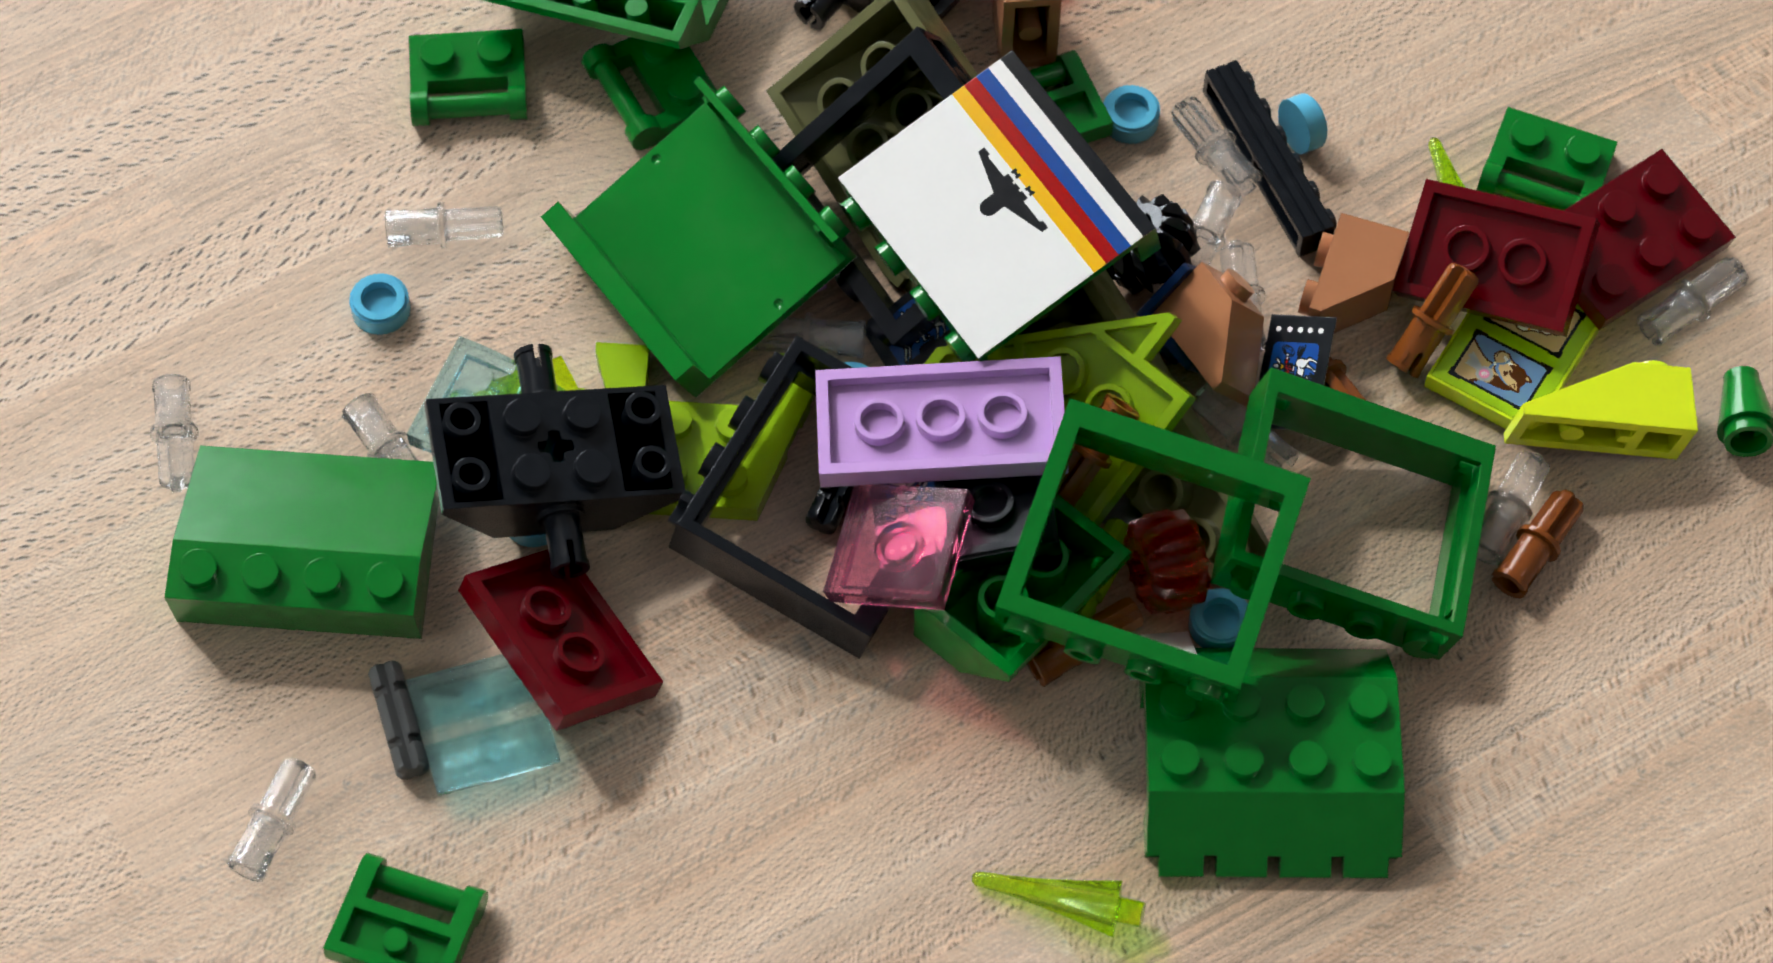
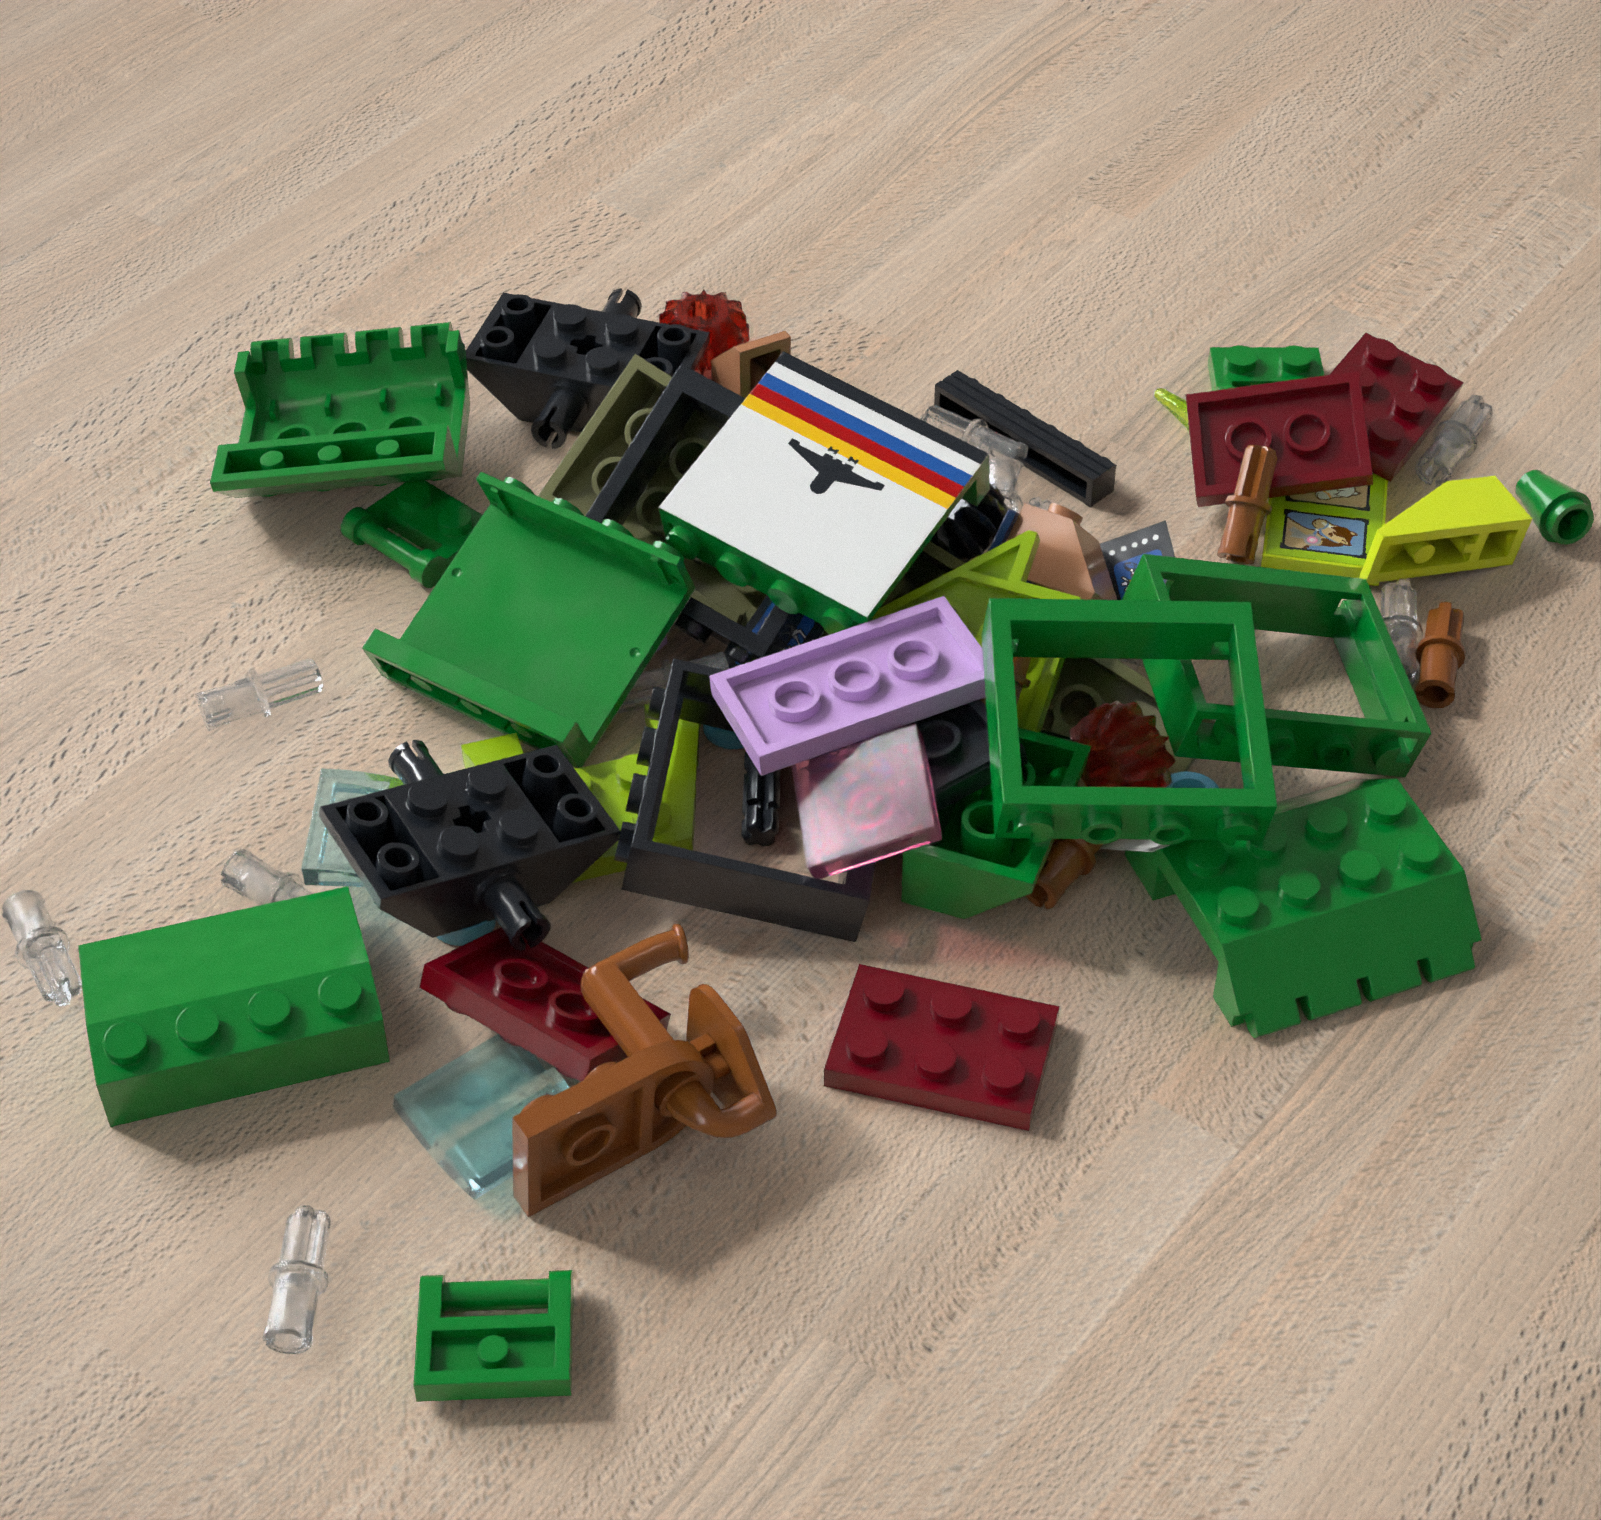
camera: 20 degrees left, 15 degrees down
(380, 304) = (220, 778): medium azure tile -> none
(398, 720) = (400, 1140): dark grey axle -> none
(467, 64) = (231, 570): green plate -> none
(604, 764) = (646, 1098): none -> dark orange plate
(882, 790) = (942, 1047): none -> dark red plate
(1089, 902) = (1203, 1079): clear neon green piece -> none
(1303, 123) = (1043, 398): medium azure tile -> none
(1356, 273) = (1153, 487): nougat slope -> none

